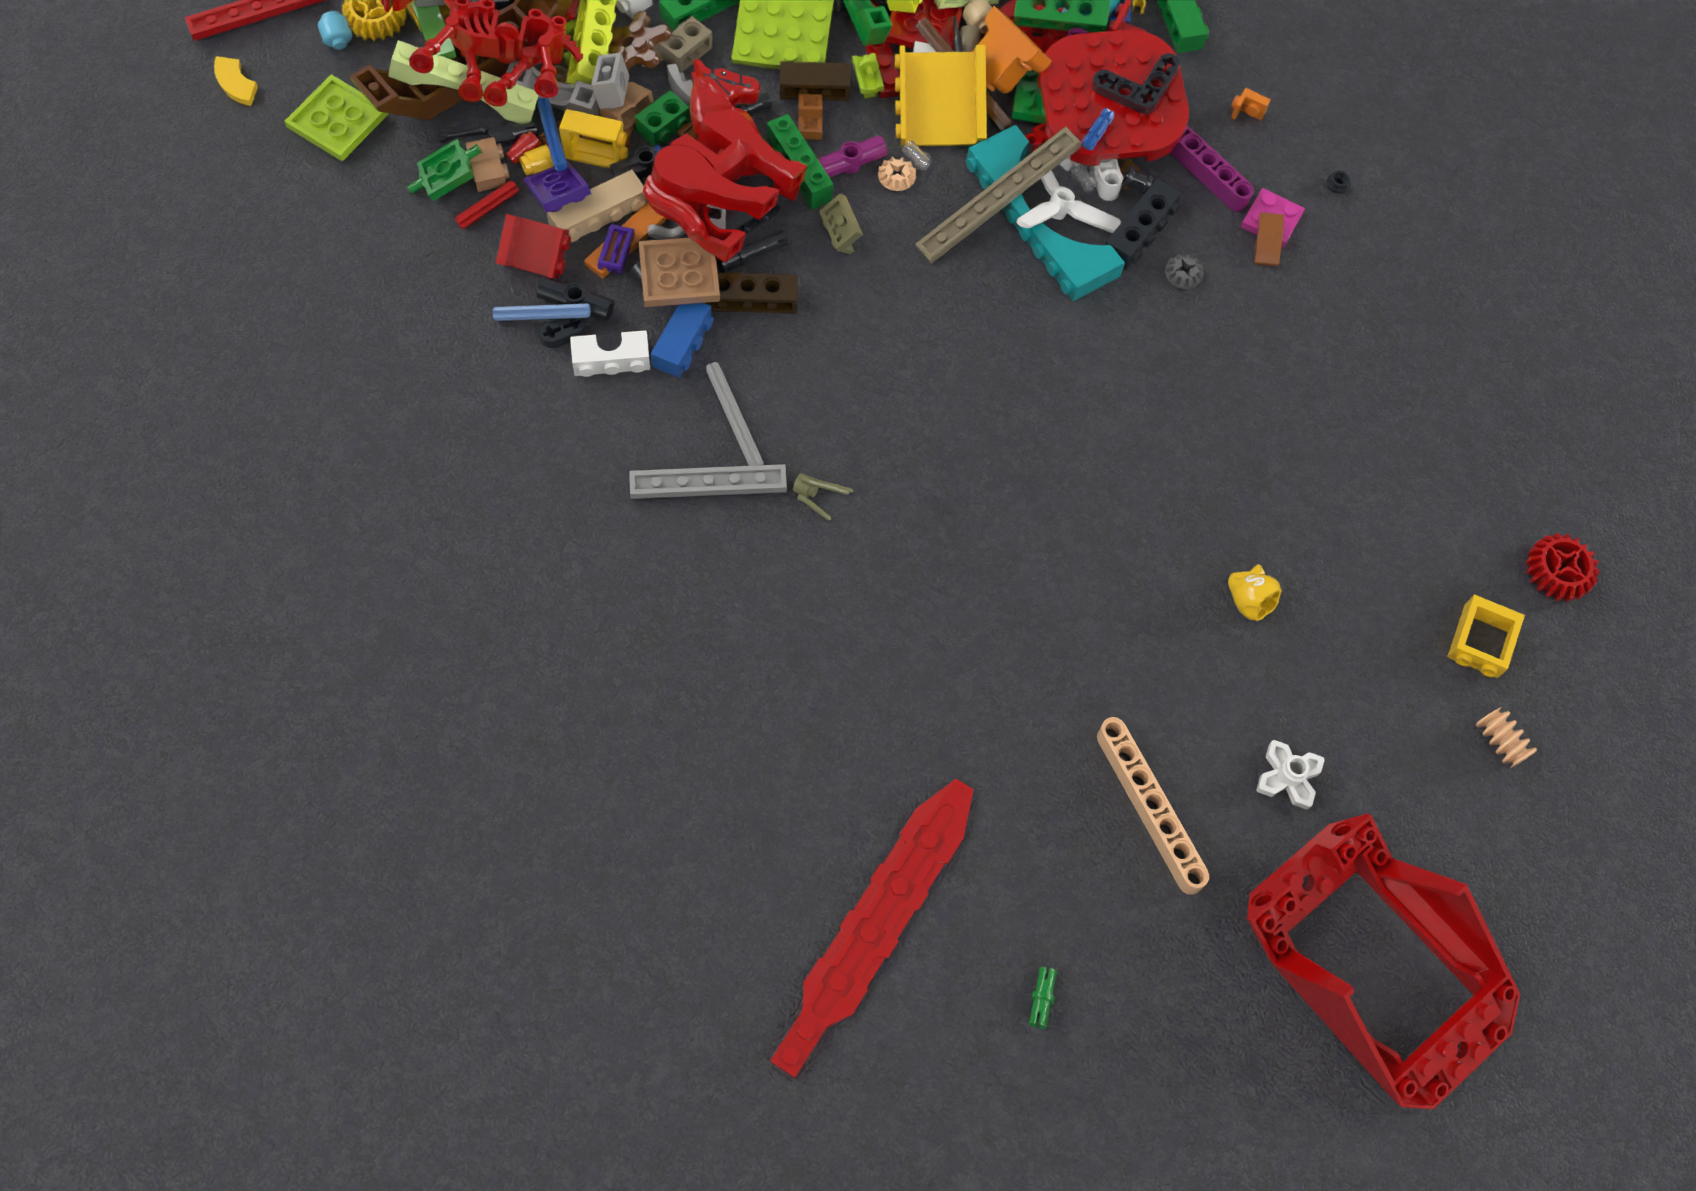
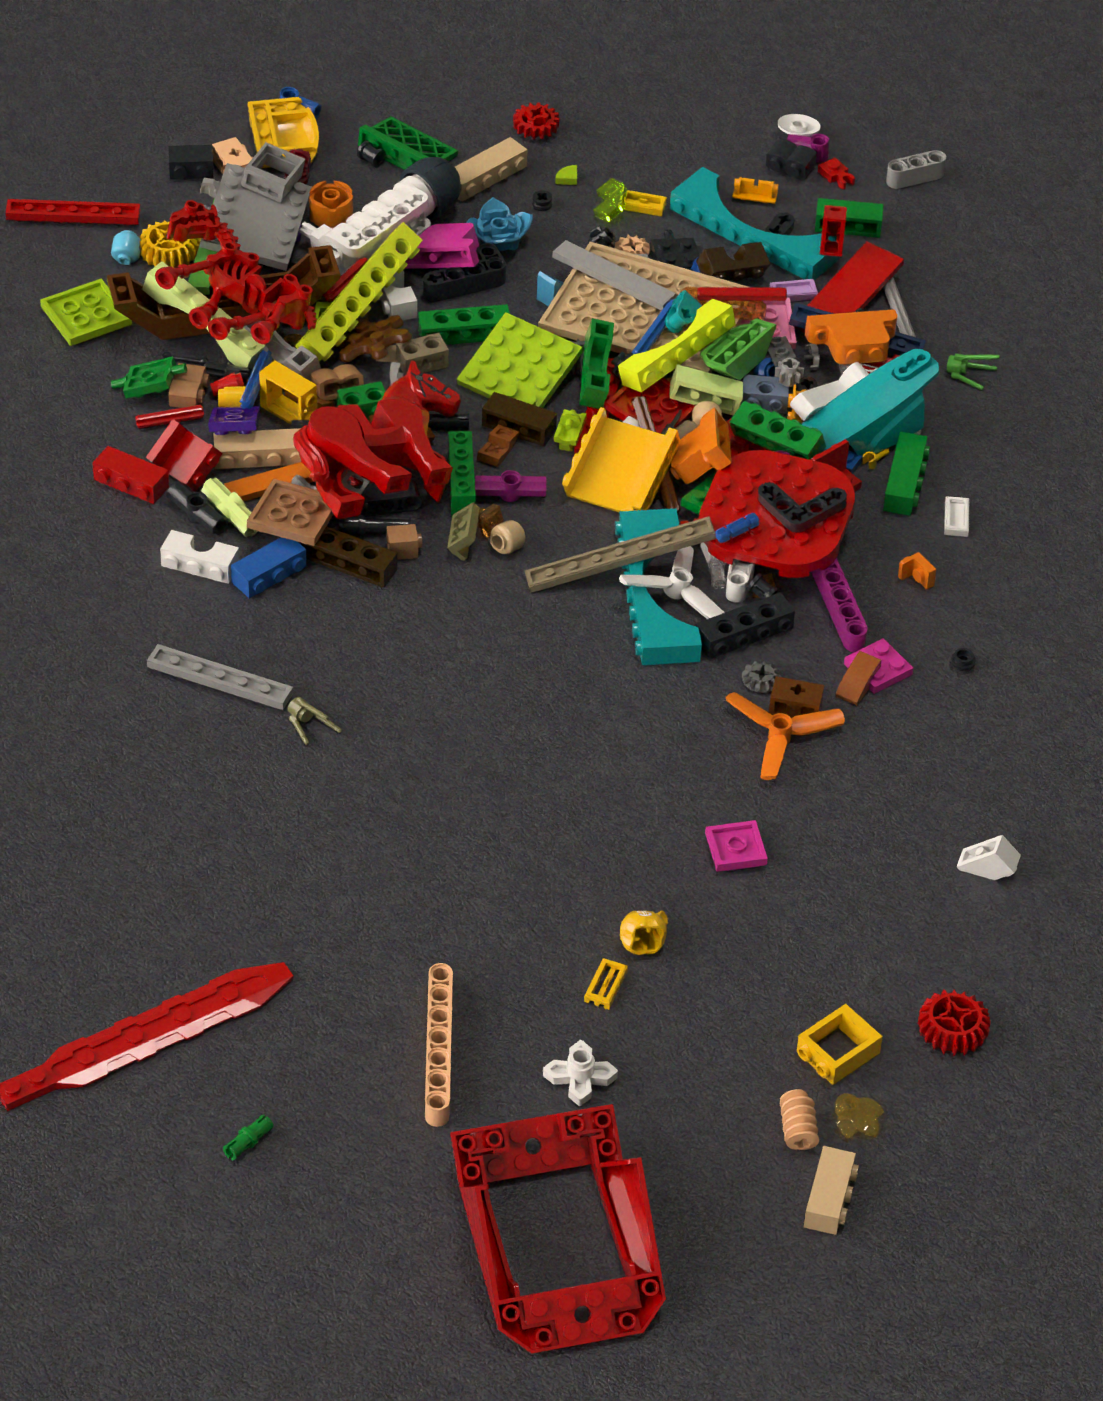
camera: 30 degrees right, 20 degrees down
(233, 82) = (18, 258): yellow tile -> none
(488, 286) = (130, 474): none -> red brick
(541, 312) = (161, 506): medium blue axle -> none
(562, 330) = (168, 524): black beam -> none
(607, 284) = (229, 505): none -> yellowish green piece
(610, 81) = (328, 353): light grey brick -> none
(611, 265) = (258, 484): dark purple tile -> none
(733, 414) = (276, 637): light grey axle -> none
(789, 257) = (404, 541): none -> medium nougat brick
(856, 200) = (489, 518): none -> clear orange tile
(881, 214) = (507, 537): none -> tan head
(897, 182) = (541, 519): light nougat gear -> none
(920, 159) = (575, 509): clear pin -> none
(1231, 283) = (795, 697): none -> reddish brown brick
(1242, 35) = (956, 516): none -> white tile
(1243, 338) = (782, 727): none -> orange piece
(1253, 684) = (600, 999): none -> yellow tile
(1273, 462) = (736, 845): none -> dark pink plate
(1486, 382) = (990, 858): none -> white slope
(1541, 703) = (860, 1117): none -> clear yellow plate
(1572, 797) = (831, 1190): none -> tan brick

